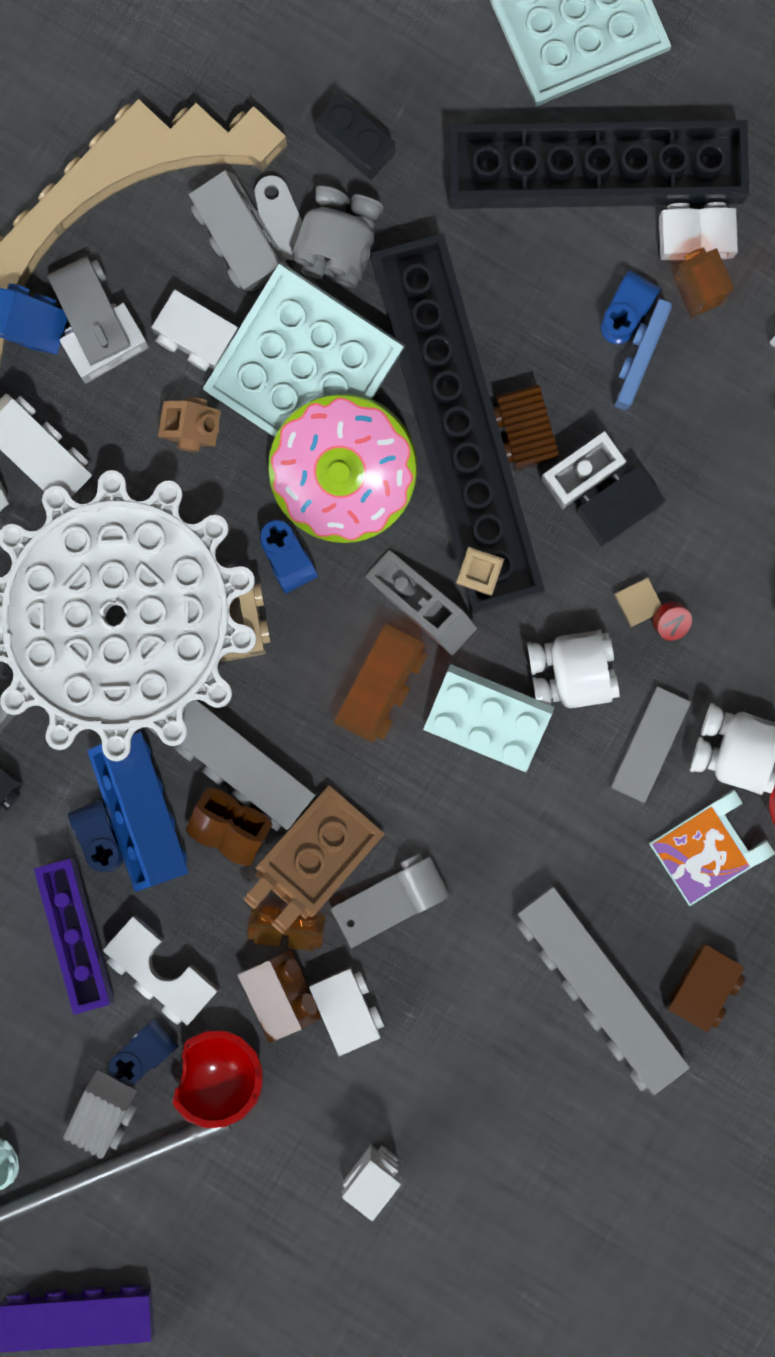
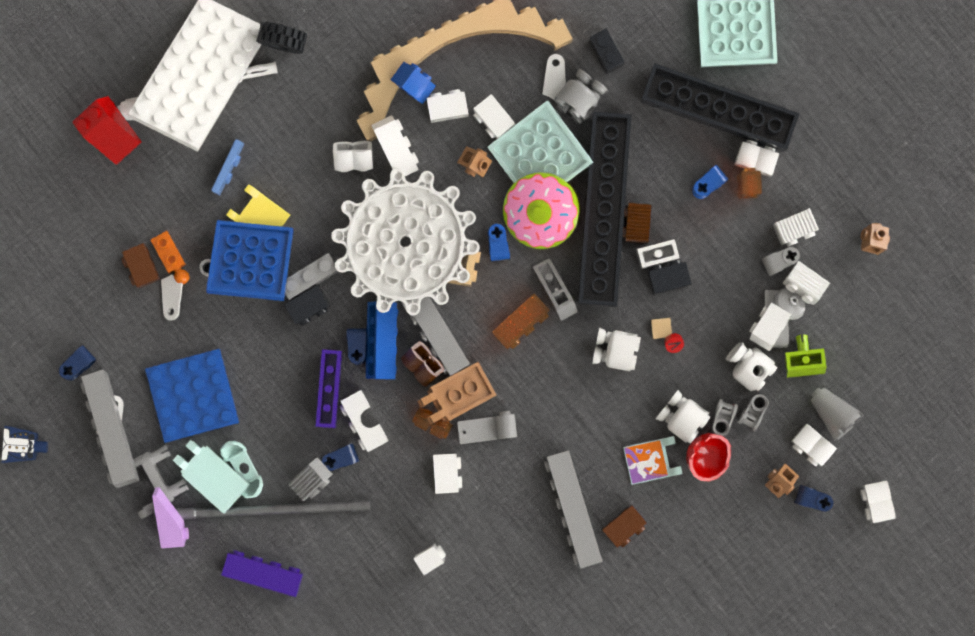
camera: 20 degrees right, 0 degrees up
(88, 309) = (446, 88): light grey door -> none
(218, 1080) = (373, 483): red cylinder -> none
(236, 231) = (532, 76): light grey brick -> none
(279, 996) = (417, 454): brick -> none
(480, 571) = (589, 285): tan tile -> none
(488, 718) = (567, 357): light aqua plate -> none
(646, 339) = (711, 201): medium blue plate -> none
(650, 744) = (641, 399): light grey tile -> none

